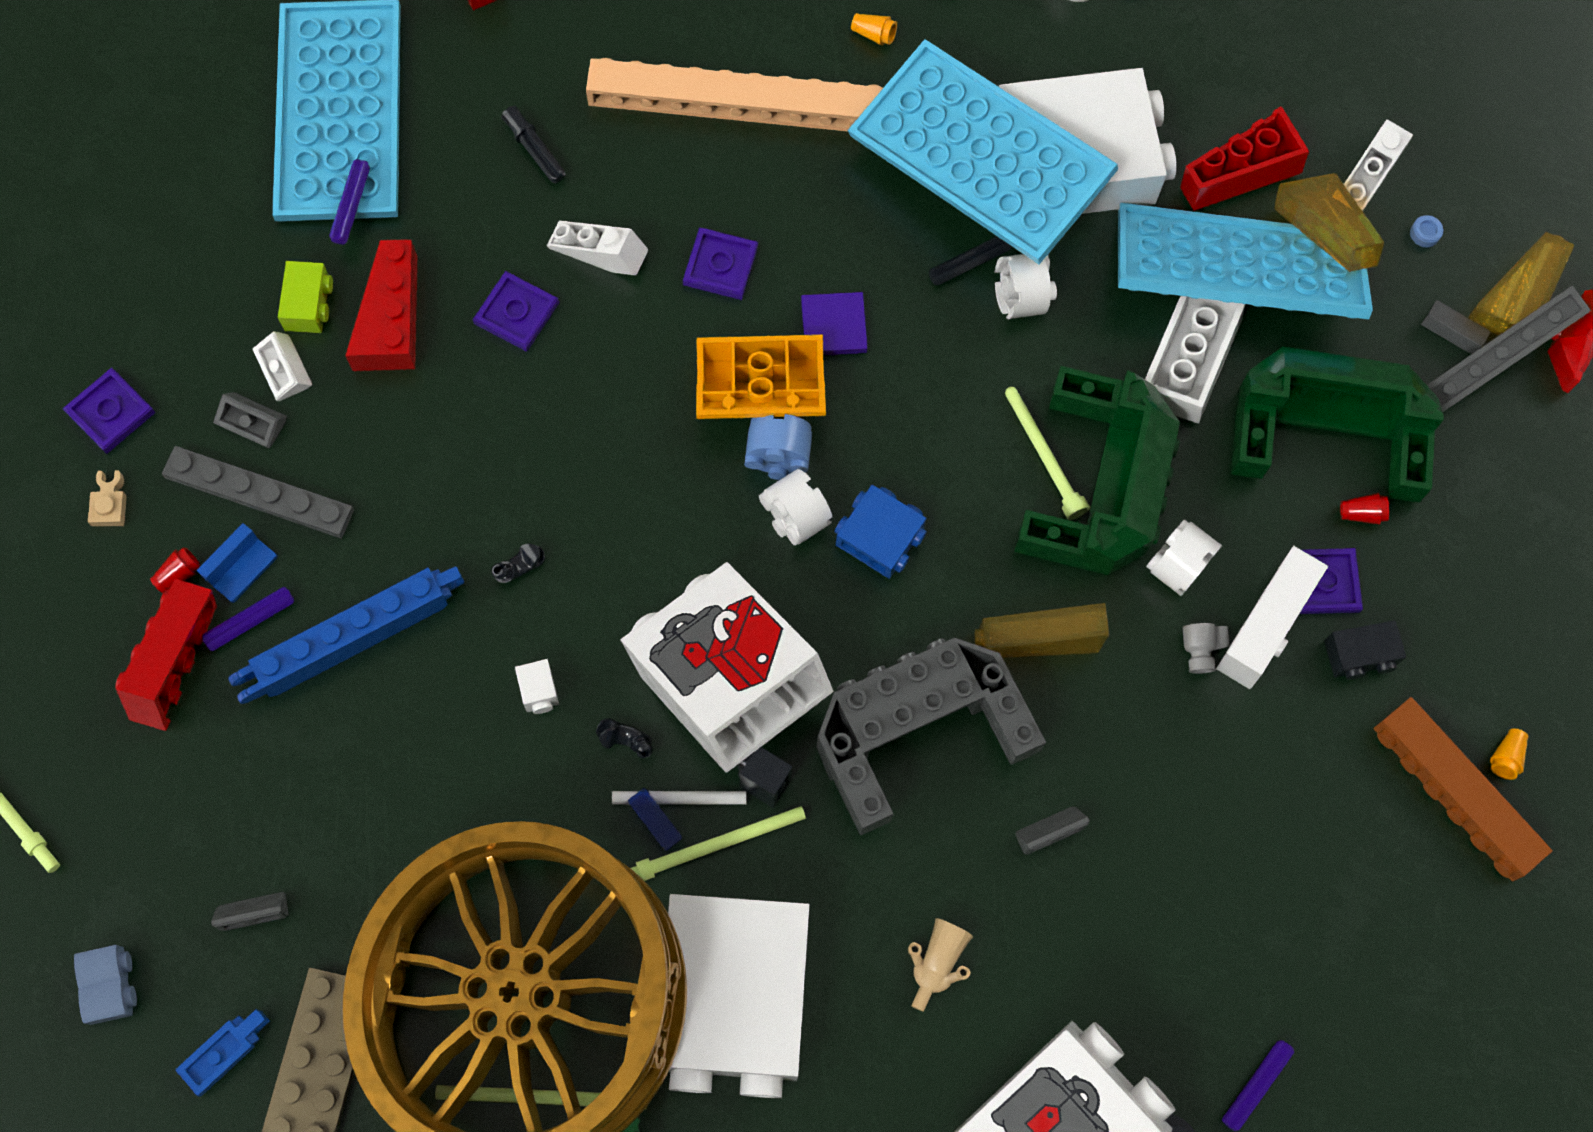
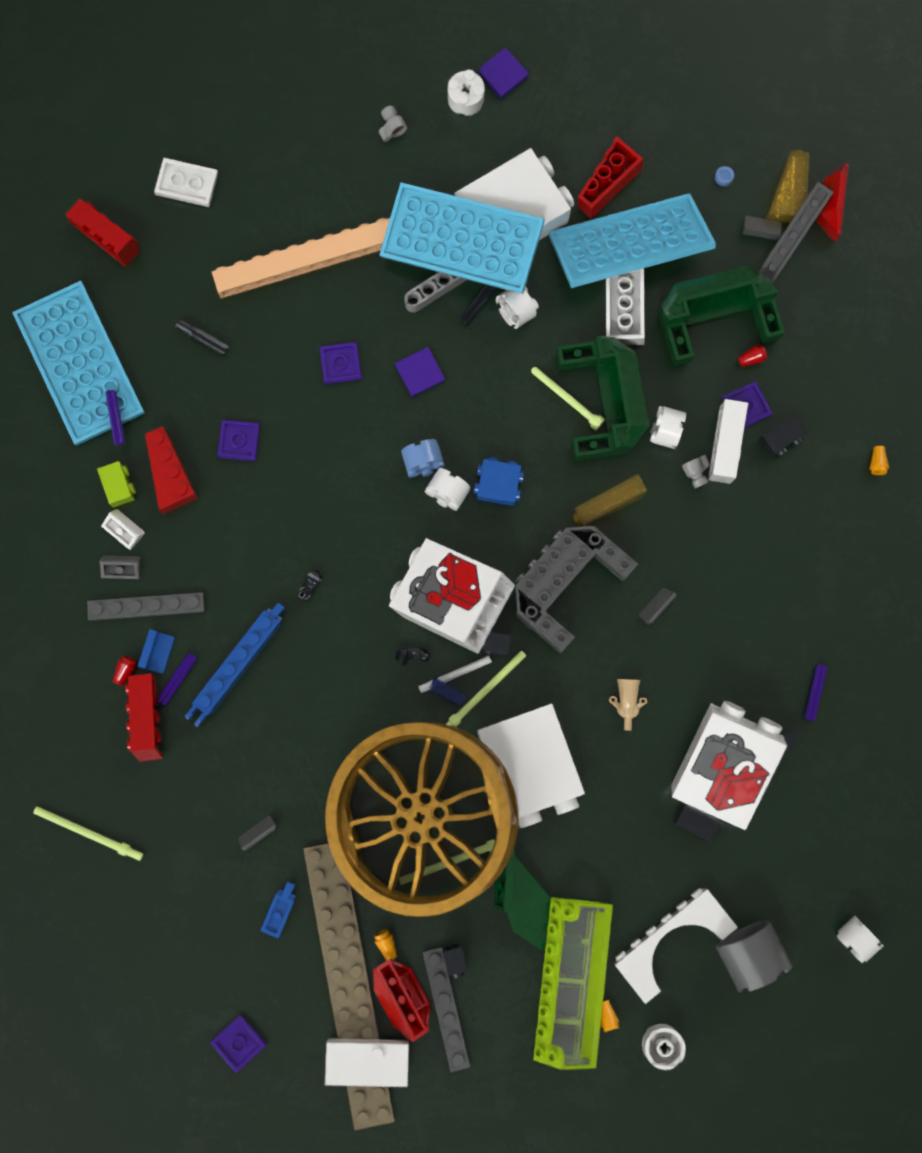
camera: 25 degrees left, 10 degrees up
(104, 984) = (200, 904): sand blue brick -> none
(109, 410) = (38, 596): dark purple tile -> none
(109, 504) = (66, 649): tan plate -> none
(537, 686) = (352, 648): white brick -> none
(599, 245) = (268, 382): white slope -> none
(760, 376) = (395, 424): light orange piece -> none
(875, 27) = (364, 181): light orange cone -> none
(915, 216) = (434, 284): none -> light grey beam
(1331, 219) = (670, 193): clear yellow slope -> none
(1377, 162) = (681, 149): white slope -> none
(1462, 790) = (860, 491): dark orange brick -> none

